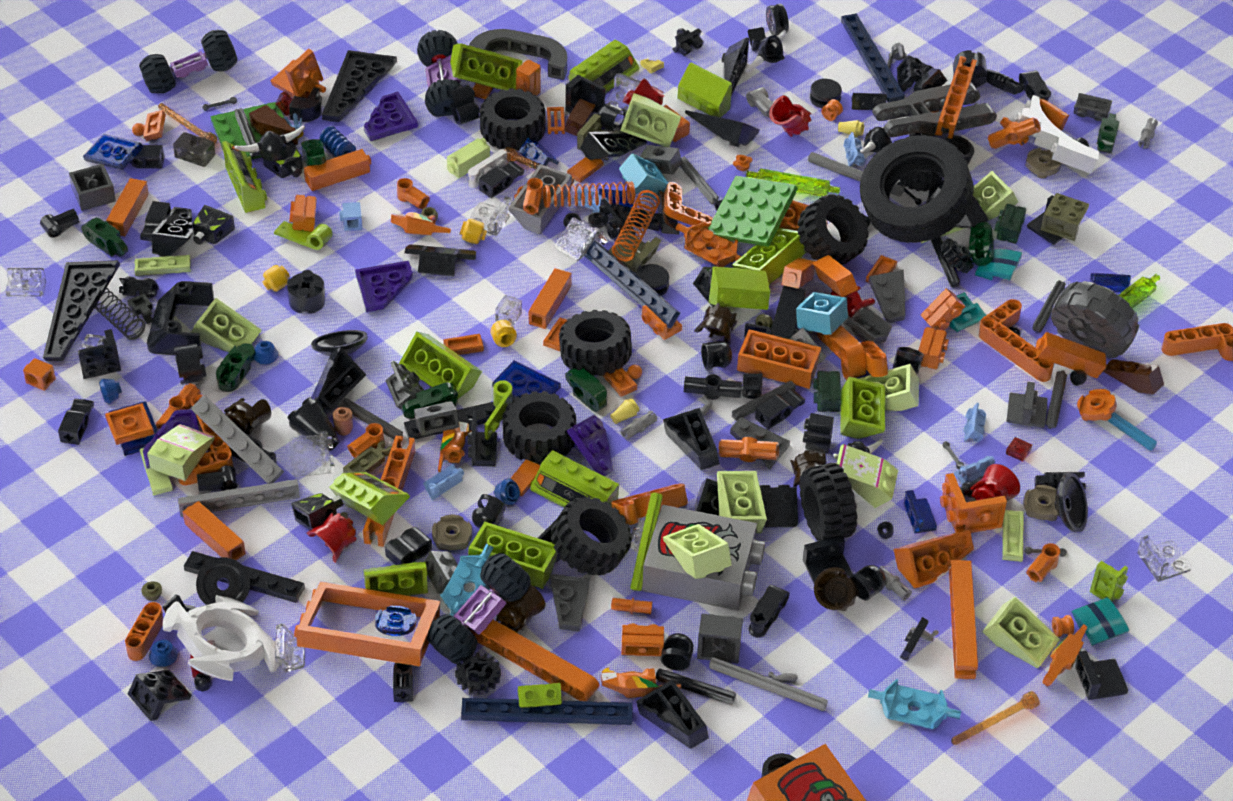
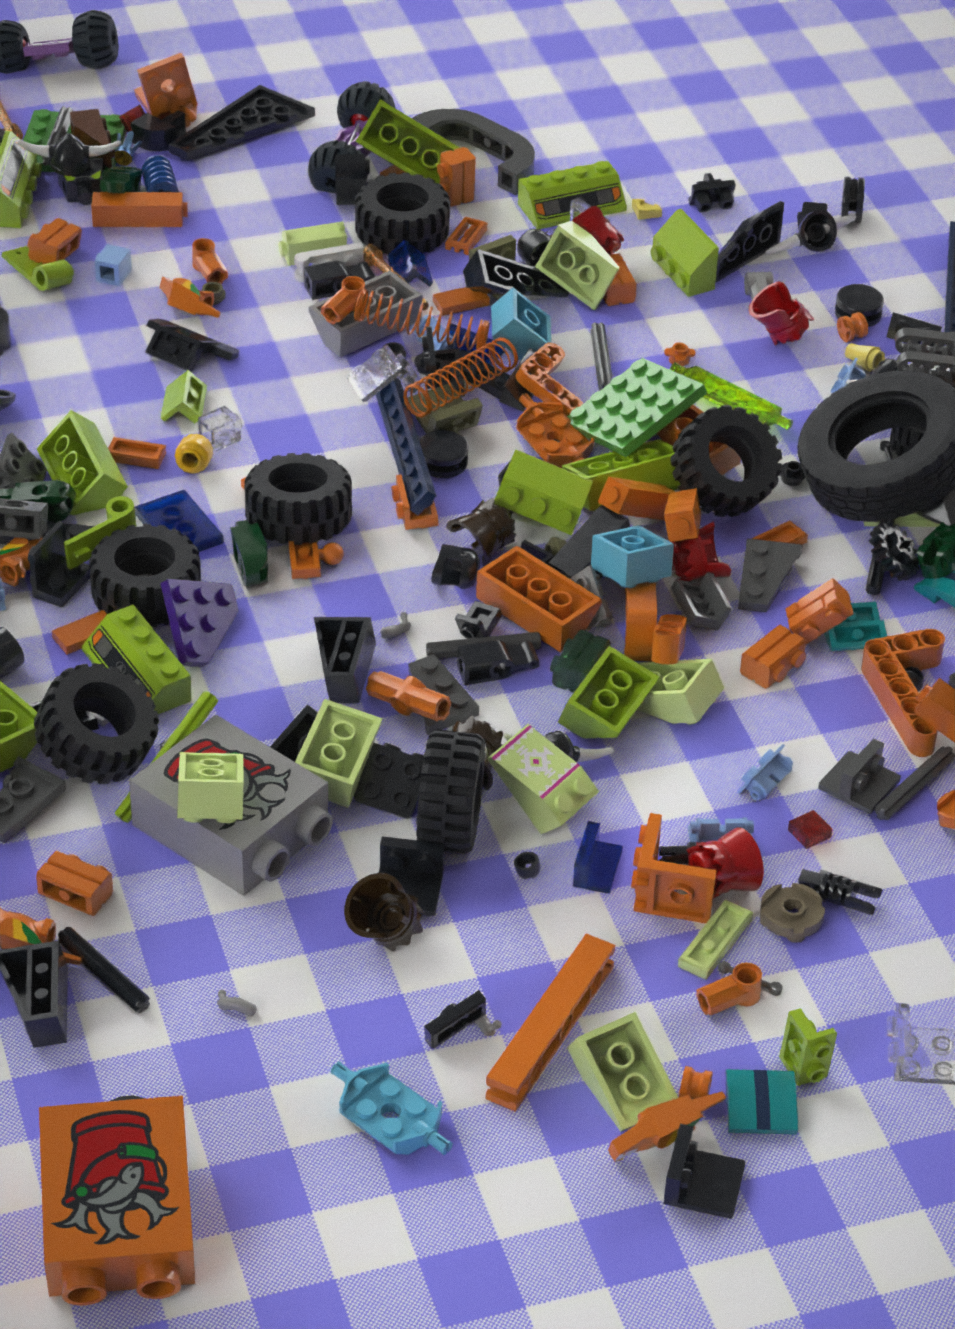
camera: 25 degrees right, 5 degrees down
(233, 100) = (78, 102): dark grey hinge -> none
(382, 283) = (89, 350): dark purple plate -> none
(390, 118) = (251, 174): dark purple plate -> none
(465, 296) = (186, 396): none -> lime panel
(473, 231) = (251, 326): yellow head -> none
(492, 216) = (287, 317): clear bracket -> none
(507, 491) = (44, 639): blue cone -> none
(550, 298) = (289, 431): orange brick -> none
(579, 116) = (494, 230): reddish brown brick -> none
(583, 89) = (513, 209): black bracket -> none
(625, 411) = (280, 596): light yellow cone -> none
(631, 605) = (99, 836): orange axle -> none
(637, 505) = (248, 716): orange beam -> none
(638, 425) = (286, 619): light grey pin -> none
(665, 158) = (567, 315): dark grey brick -> none
(677, 652) = (107, 913): black helmet -> none
(712, 387) = (421, 604): black piece -> none
(719, 638) = (174, 915): dark grey brick -> none
(732, 131) = (685, 308): black wedge -> none
(767, 610) = (277, 907): black piece -> none
(768, 684) = (207, 1004): light grey axle -> none
(818, 432) = (519, 703): black brick -> none
(845, 170) = (813, 399): light grey axle -> none
(869, 581) = (447, 921): black helmet -> none
(893, 583) = (487, 938): light grey pin -> none
(907, 356) = (726, 656): black helmet -> none
(929, 558) = (555, 924): orange wedge -> none
(946, 445) = (704, 788): dark grey hinge -> none
(1028, 701) = (566, 1170): clear orange piece -> none
(1071, 502) = (824, 920): black dish -> none

